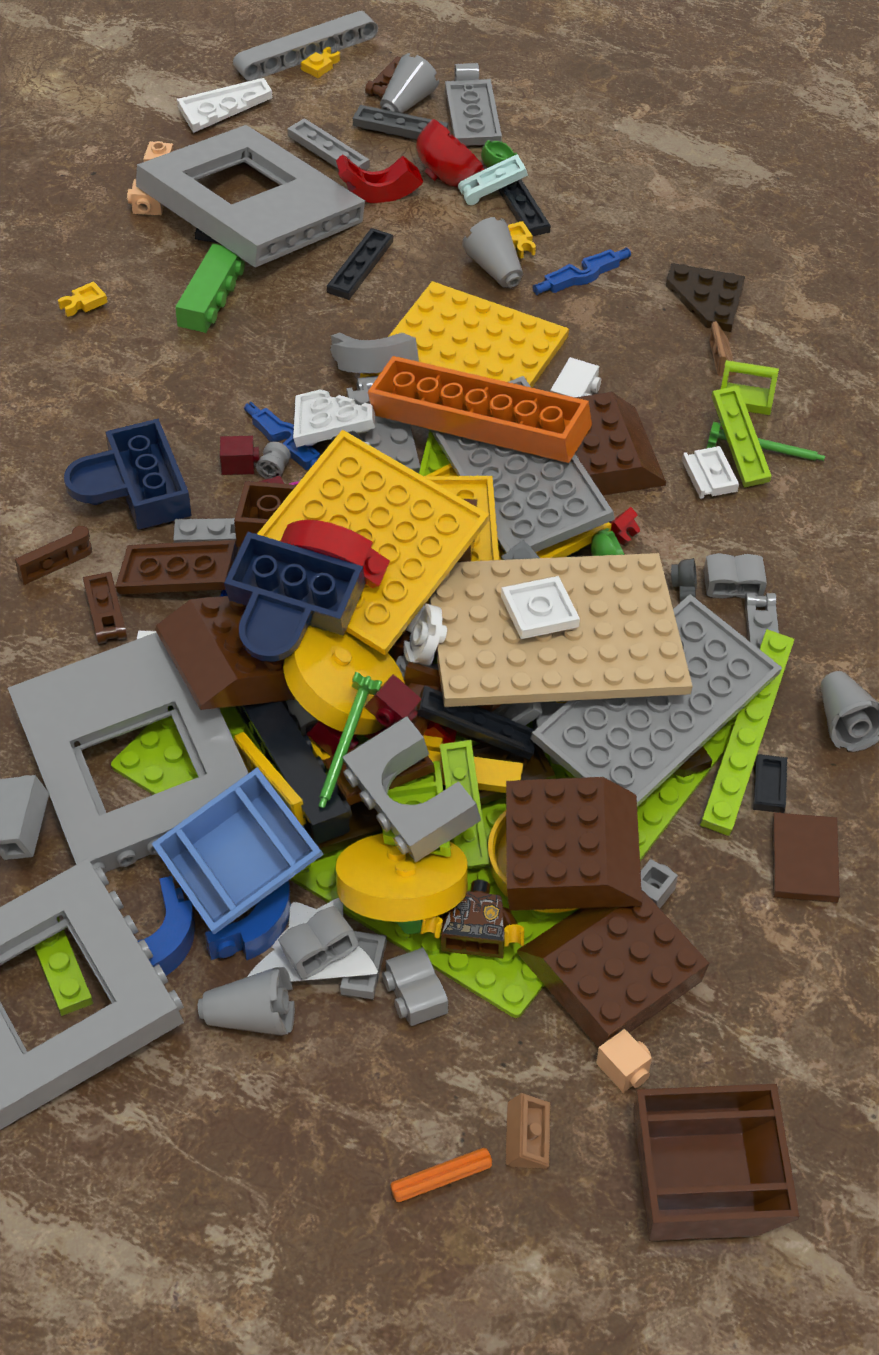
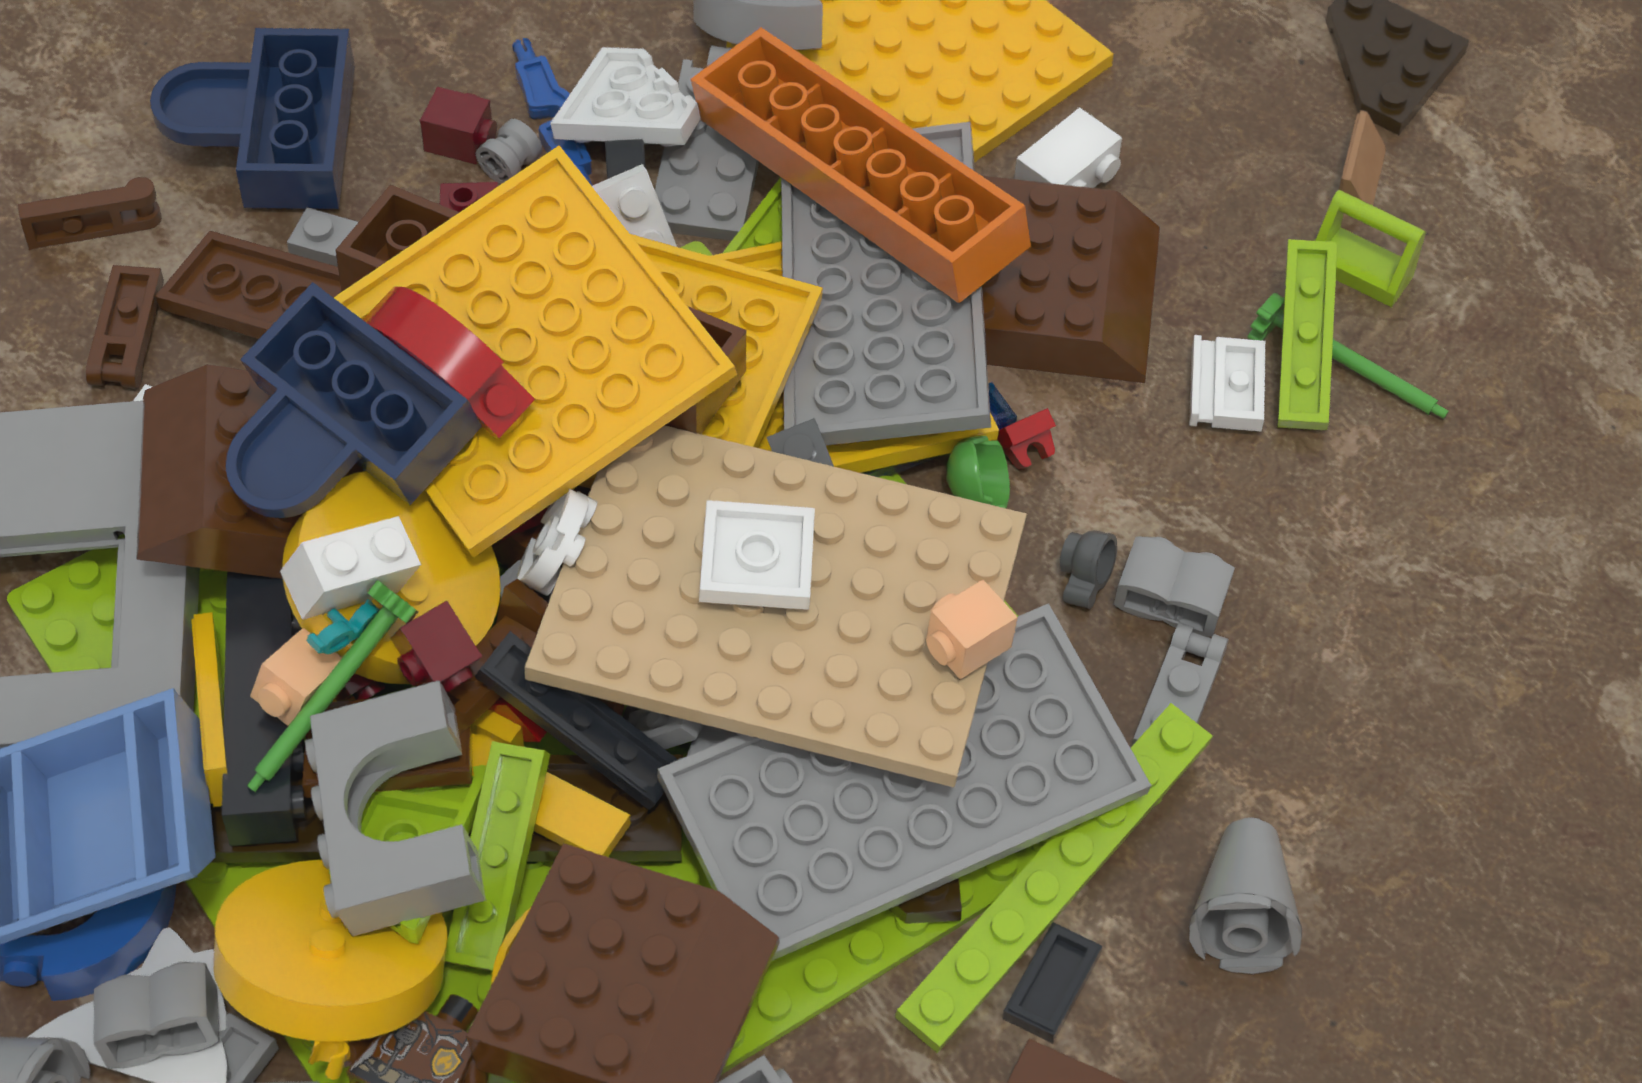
camera: 20 degrees right, 5 degrees up
(321, 742) = (291, 677): none -> light nougat brick
(334, 671) = (345, 565): none -> white brick
(343, 706) = (342, 631): none -> teal piece
(667, 611) = (970, 629): none -> light nougat brick

